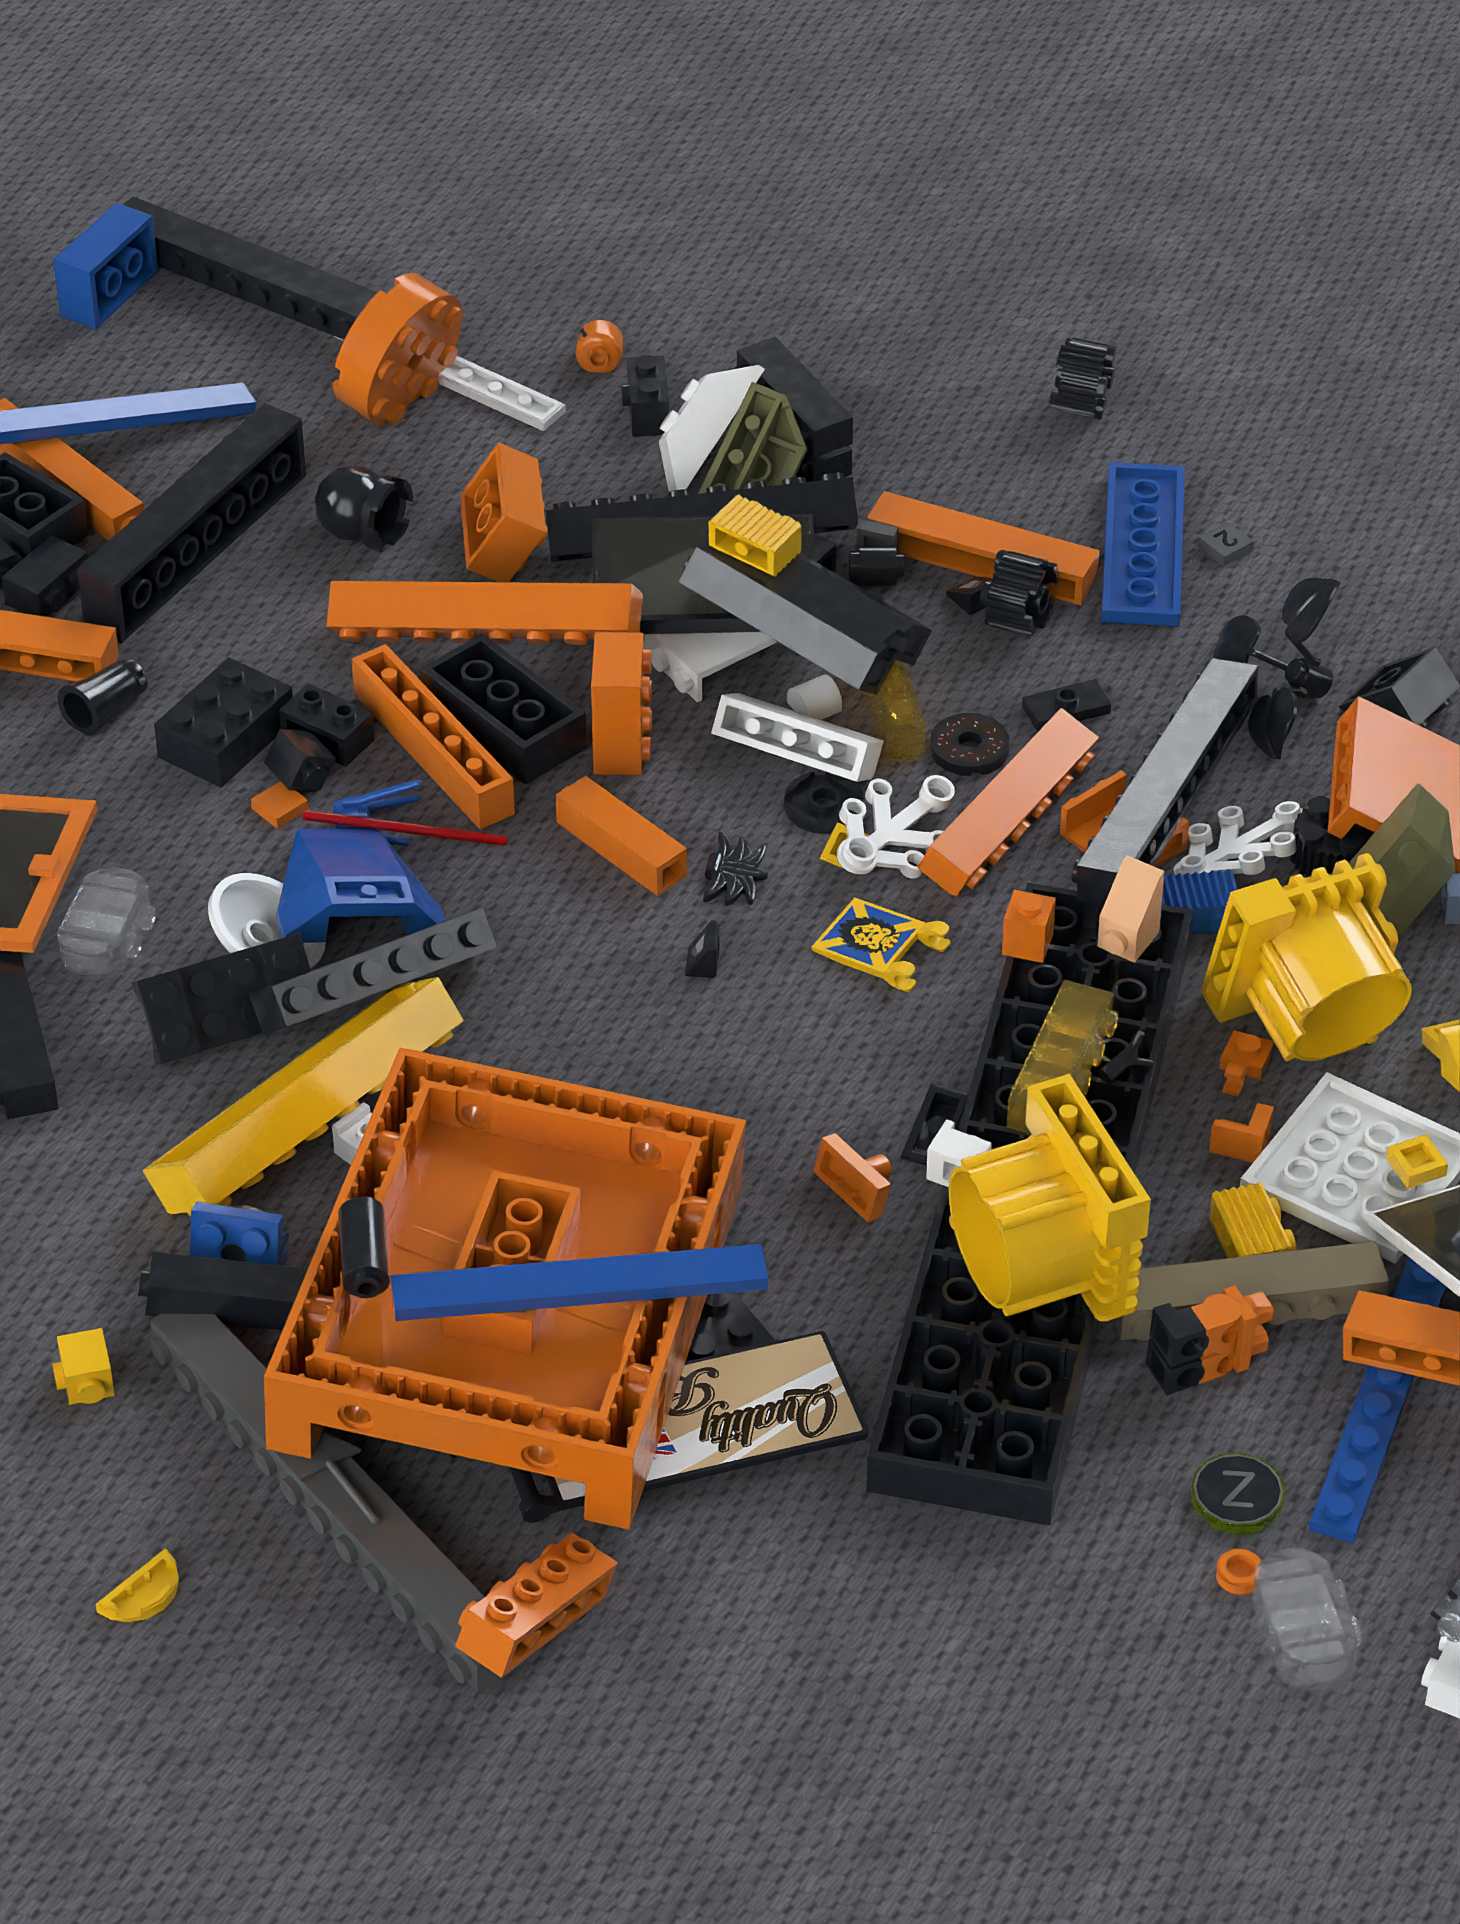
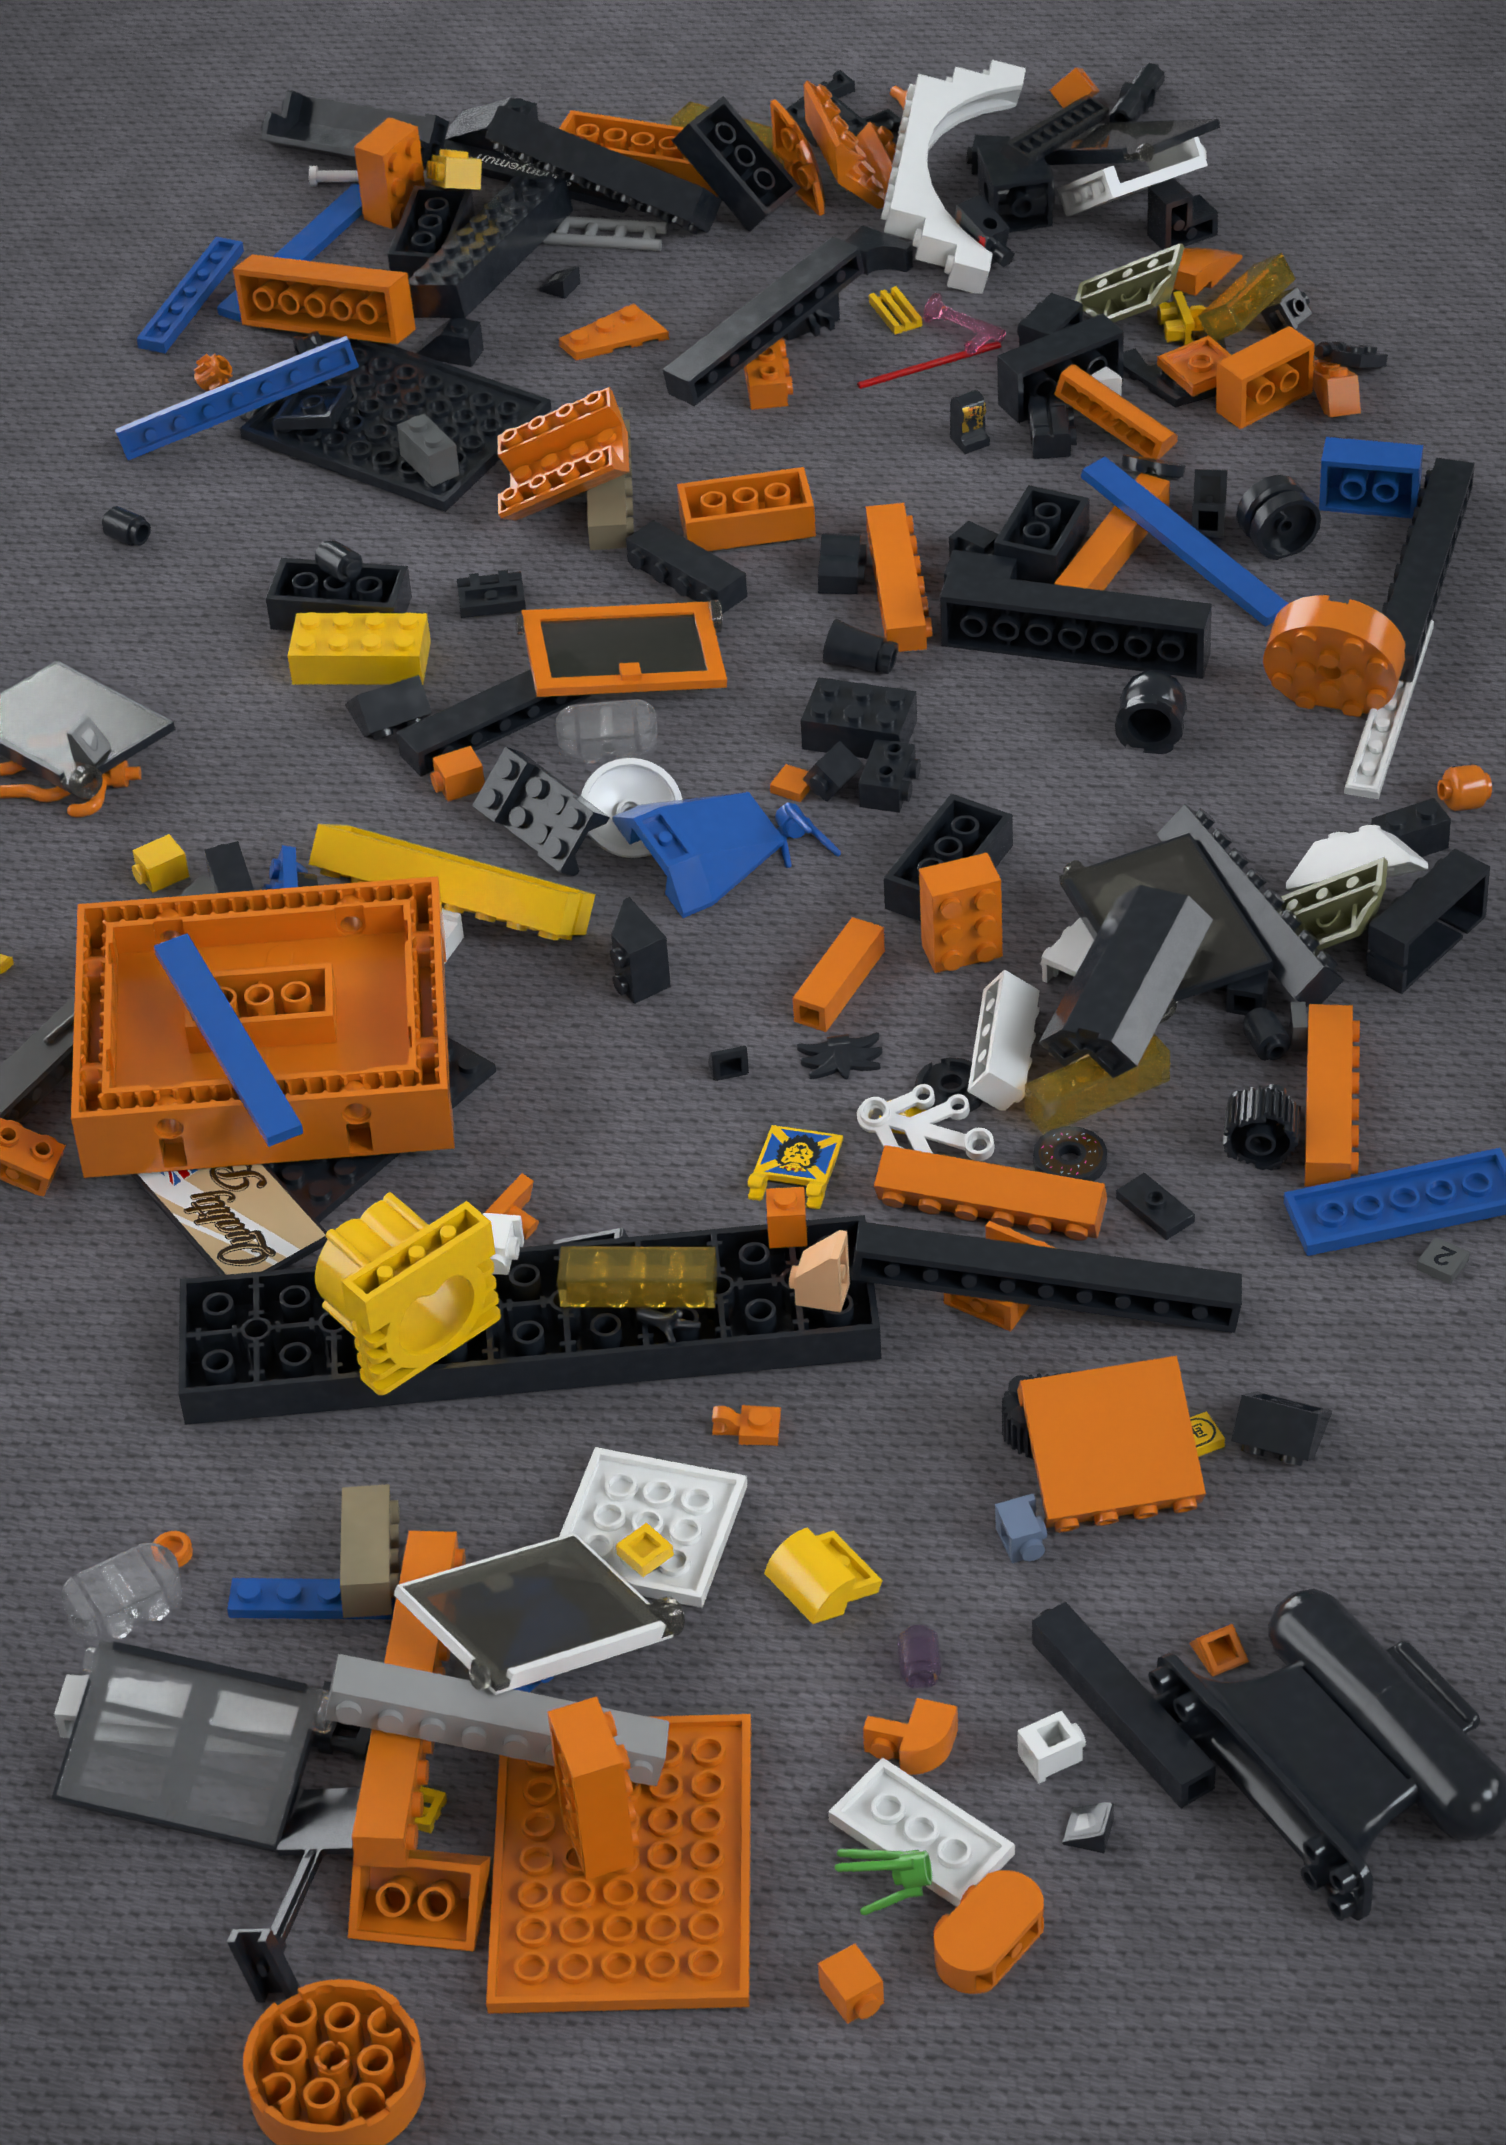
camera: 75 degrees right, 0 degrees up
(51, 384) = (1210, 502): none -> black brick
(95, 1064) = (457, 773): none -> orange brick
(124, 340) = (1278, 517): none -> black wheel
(364, 1247) = (204, 910): black brick -> none
(372, 971) = (591, 870): black brick -> none
(404, 827) = (790, 854): red axle -> none
(433, 737) = (881, 841): orange brick -> none
(471, 608) = (1040, 810): orange brick -> none
(503, 514) = (1191, 779): orange brick -> none
(513, 970) = (638, 954): none -> black slope
(755, 535) = (1154, 907): yellow brick -> none
(1203, 893) = (923, 1345): blue brick -> none
(1207, 1338) = (388, 1457): hips -> none
(1237, 1493) = (253, 1529): black tile -> none
(1243, 1140) = (654, 1441): orange panel -> none
(1245, 847) = (974, 1339): white plant -> none
(1249, 1222) = (537, 1469): yellow brick -> none
(1275, 714) = (1265, 1346): black plant -> none
(1295, 1282) = (462, 1473): dark tan brick -> none
(1310, 961) = (827, 1410): yellow hose -> none
(1335, 1383) = (367, 1554): none -> dark tan brick
(1415, 854) = (1000, 1453): olive wedge -> none

